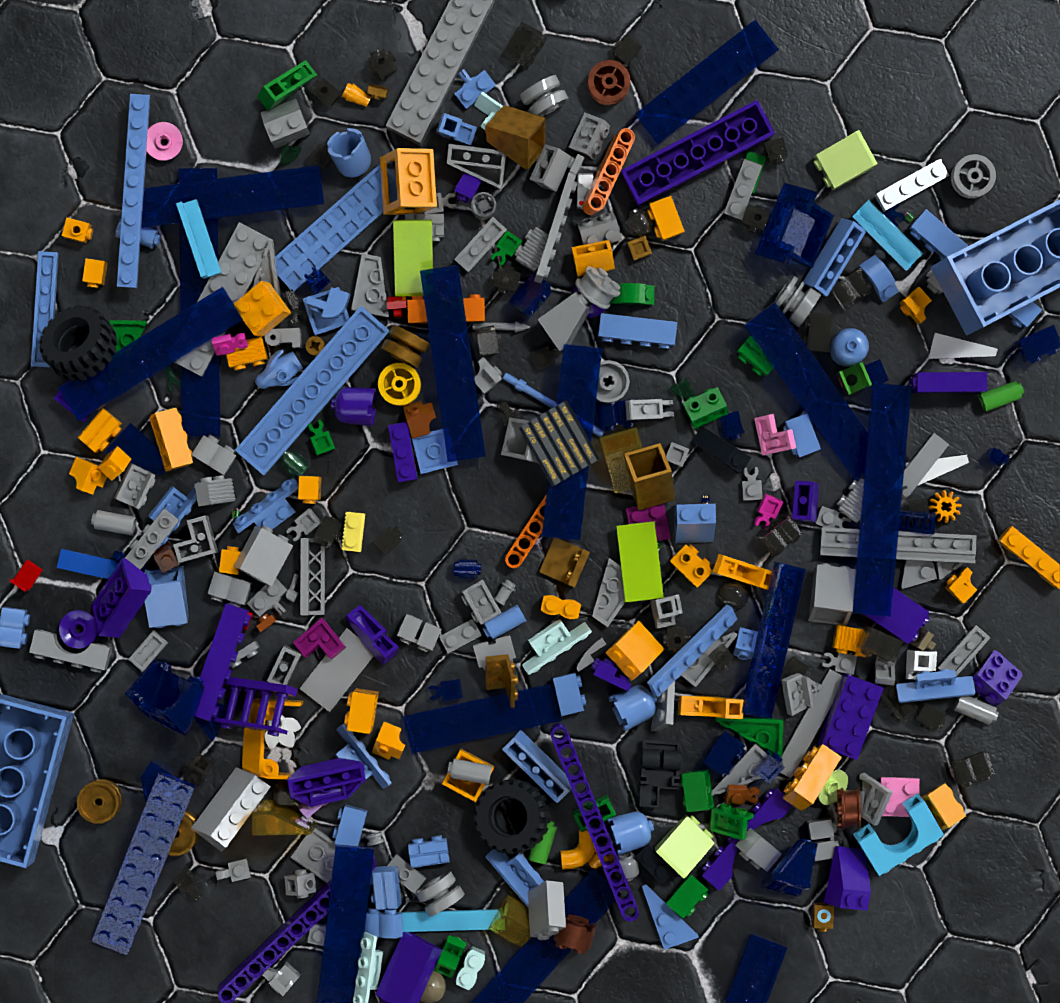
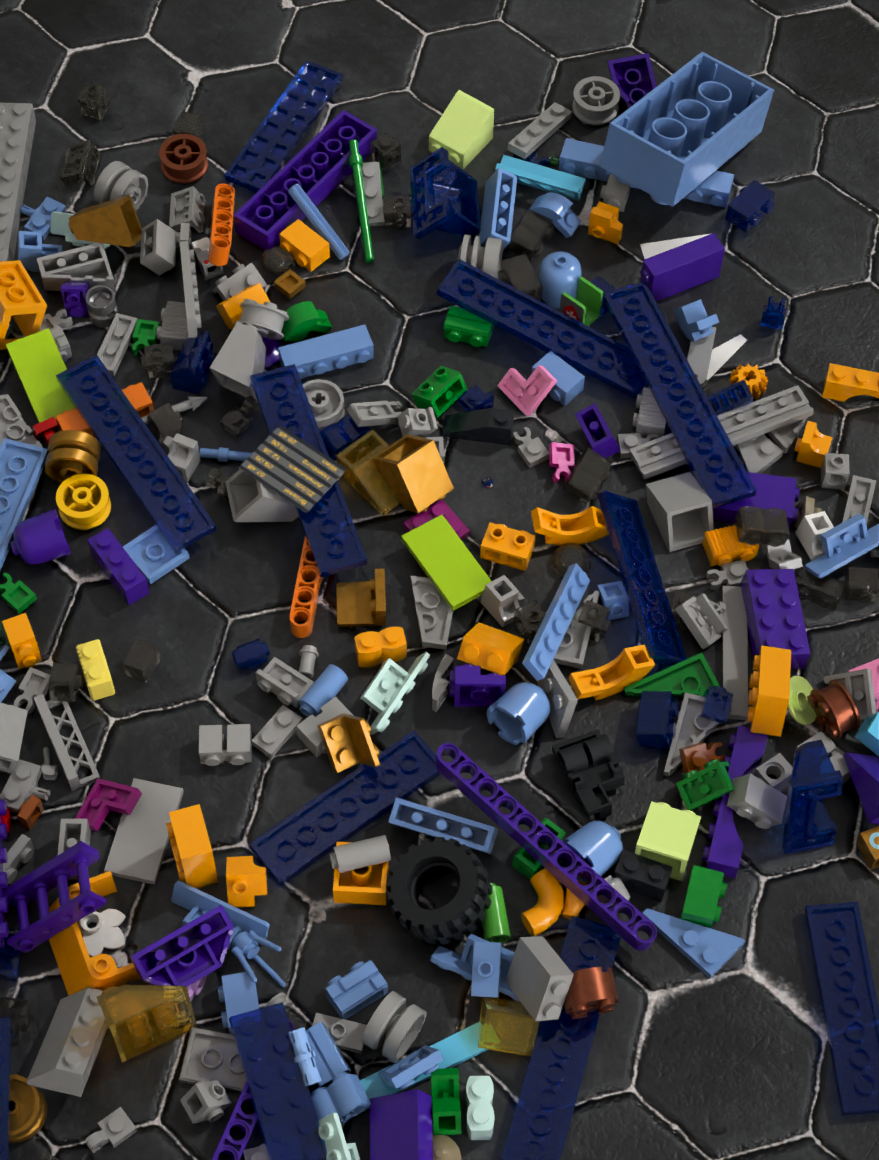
camera: 30 degrees left, 30 degrees down
(372, 635) = (170, 770): dark purple slope -> none
(372, 790) = (246, 946): none -> medium blue plant
(372, 890) = (304, 1056): none -> light blue pin
(419, 418) = (122, 523): dark orange brick -> none
(437, 927) = (404, 1071): none -> medium blue plate
(449, 690) = (292, 792): clear blue plate -> none
(517, 883) = (486, 969): none -> medium blue plate
(568, 693) = (436, 729): medium blue brick -> none
(675, 429) = (417, 422): none -> light grey brick
(683, 389) = (403, 390): clear green tile -> none
(686, 204) = (318, 221): none -> medium blue axle
(694, 523) = (486, 494): medium blue slope -> none
(697, 790) = (647, 771): green brick -> none
(741, 161) = (356, 163): none -> green bar
(790, 835) = (776, 766): none -> light grey brick
(932, 437) = (694, 320): none -> medium blue brick
(964, 615) = (835, 471): none -> light grey brick
(1001, 395) = (741, 265): bright green brick -> none
(1013, 179) = (633, 77): none -> dark purple wedge

